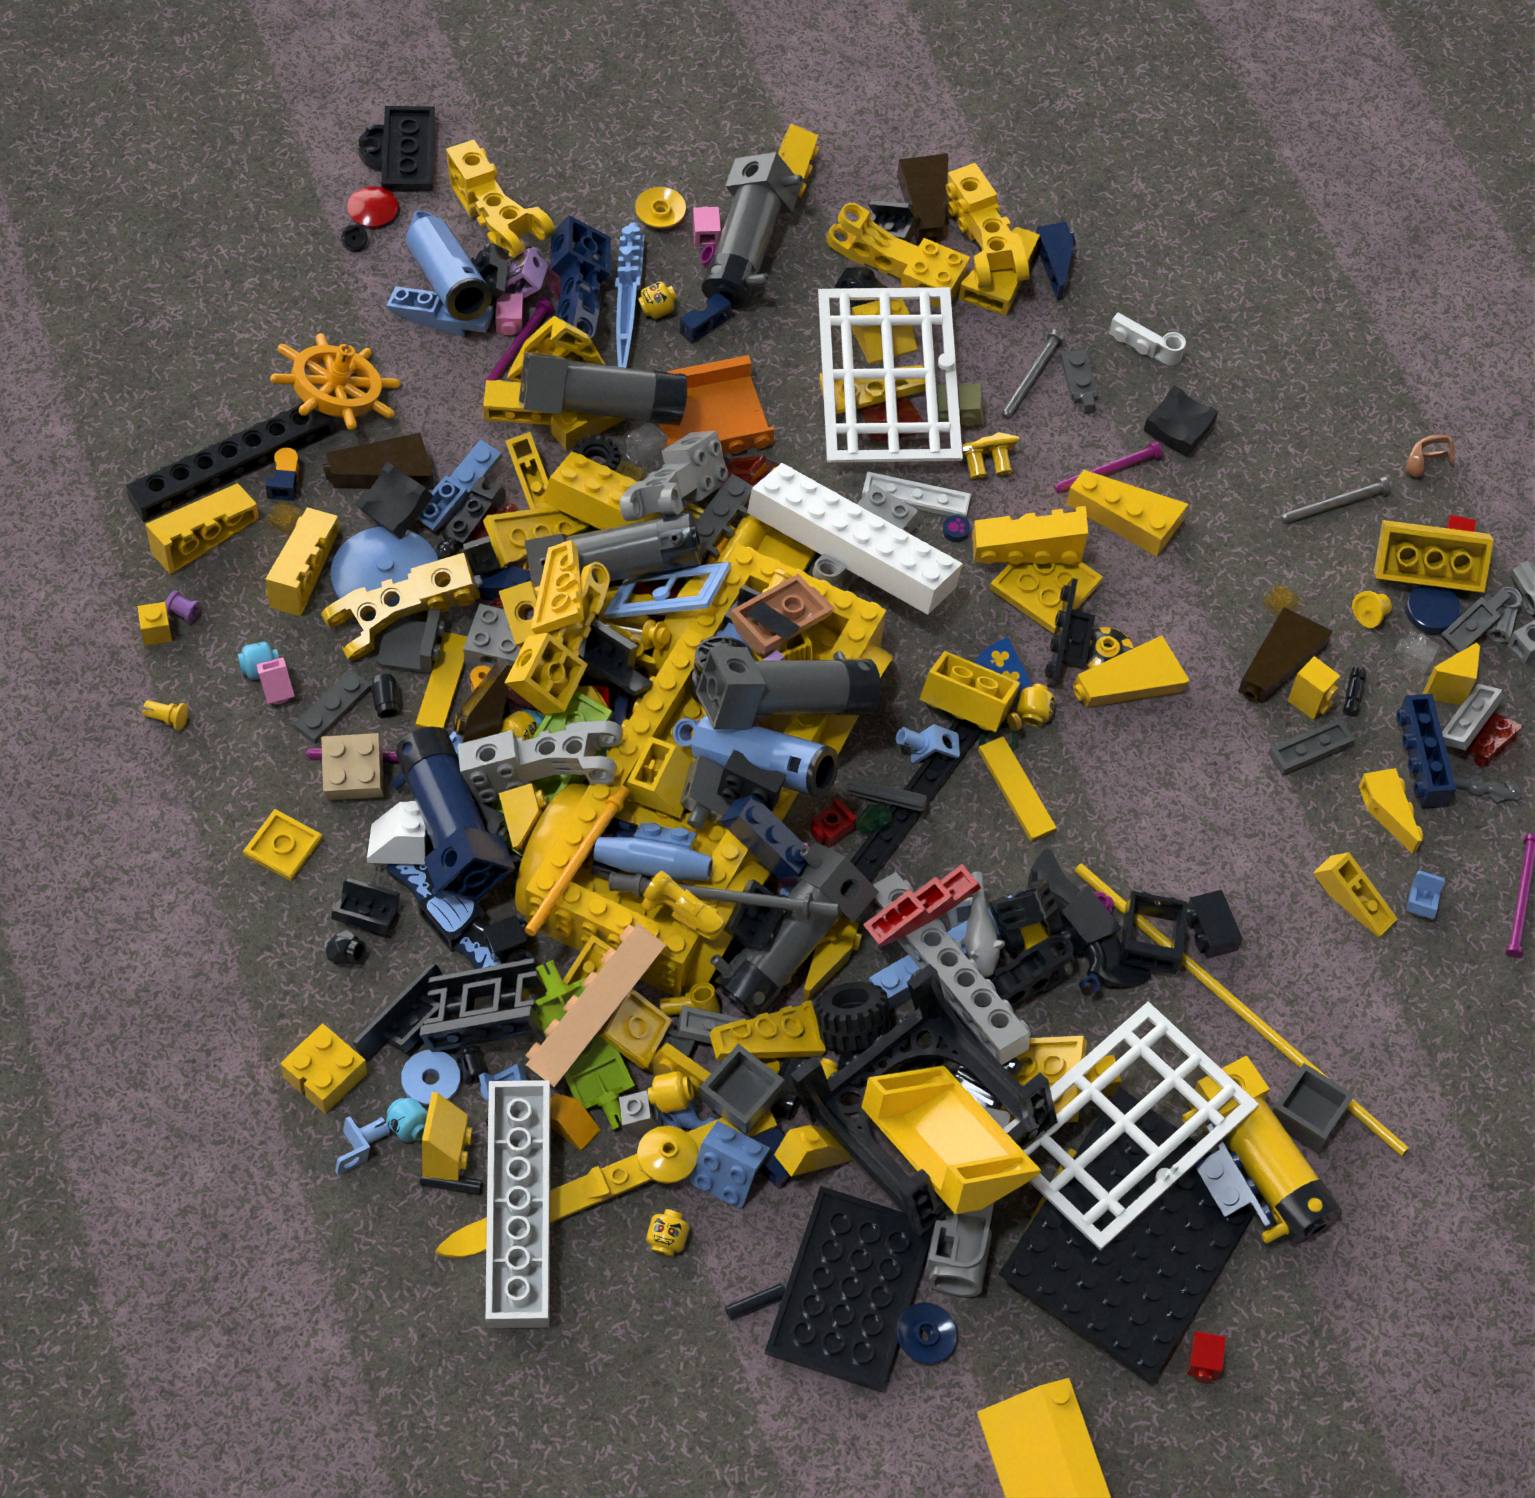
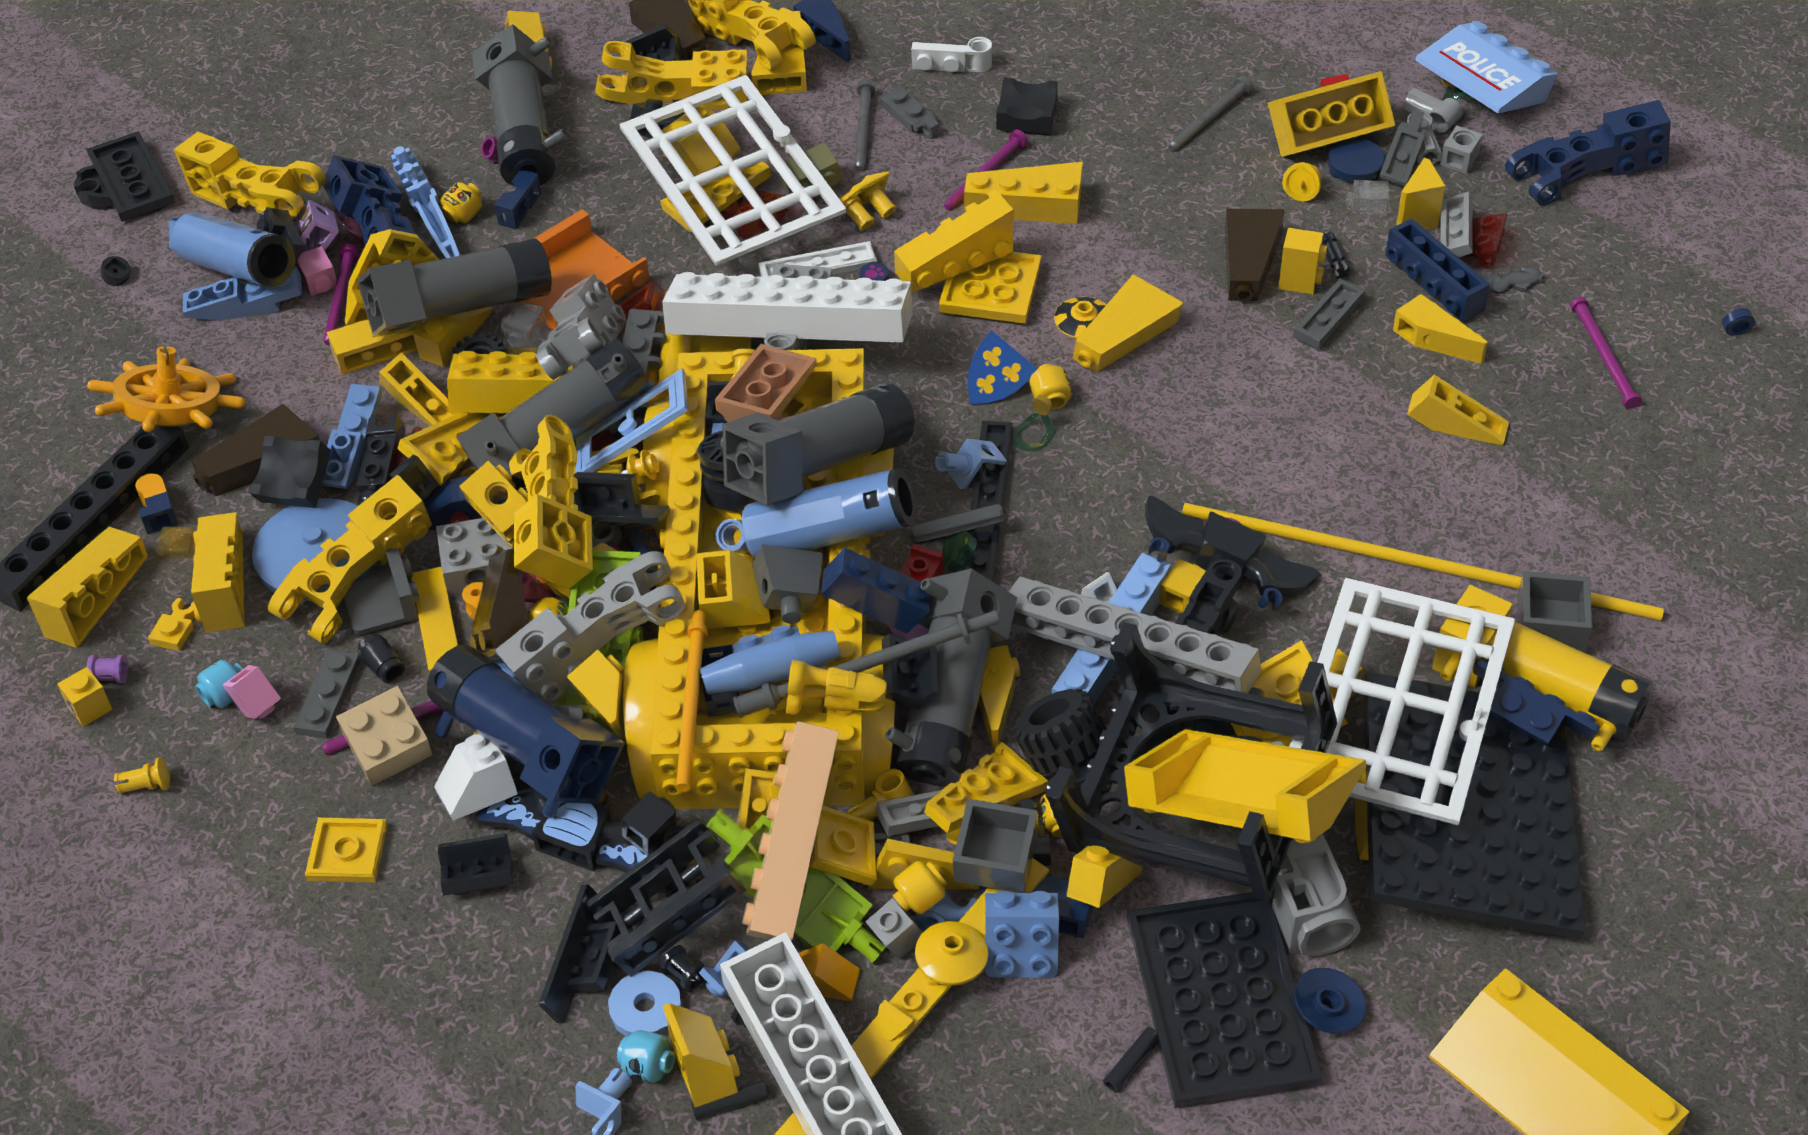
camera: 20 degrees left, 10 degrees down
(247, 593) = (173, 629): none -> yellow plate
(326, 1065) = (526, 1041): yellow piece -> none
(345, 948) = (475, 917): black rock -> none
(372, 207) = (120, 238): red dish -> none
(560, 590) = (525, 456): yellow wing -> none
(660, 199) = (418, 128): yellow dish -> none
(667, 1233) = (997, 1034): yellow head -> none
(706, 226) = (472, 125): bright pink brick -> none
(744, 779) = (826, 537): black brick -> none
(773, 620) = (763, 390): black sticker -> none
(922, 907) = (1070, 590): red slope -> none
(969, 691) = (982, 398): yellow brick -> none
(981, 933) = (1137, 588): light grey piece -> none
(1017, 789) = (1080, 466): yellow tile -> none
(1025, 909) = (1172, 546): black piece -> none
(1072, 637) = (1046, 313): black bracket -> none
(1151, 955) = (1304, 548): black window -> none
(1206, 1356) = (1617, 886): red brick -> none
(1213, 924) = (1347, 497): black brick -> none
(1279, 598) = (1214, 210): clear yellow plate -> none
(1415, 464) = (1261, 50): nougat piece -> none
(1425, 894) = (1519, 387): medium blue bracket -> none

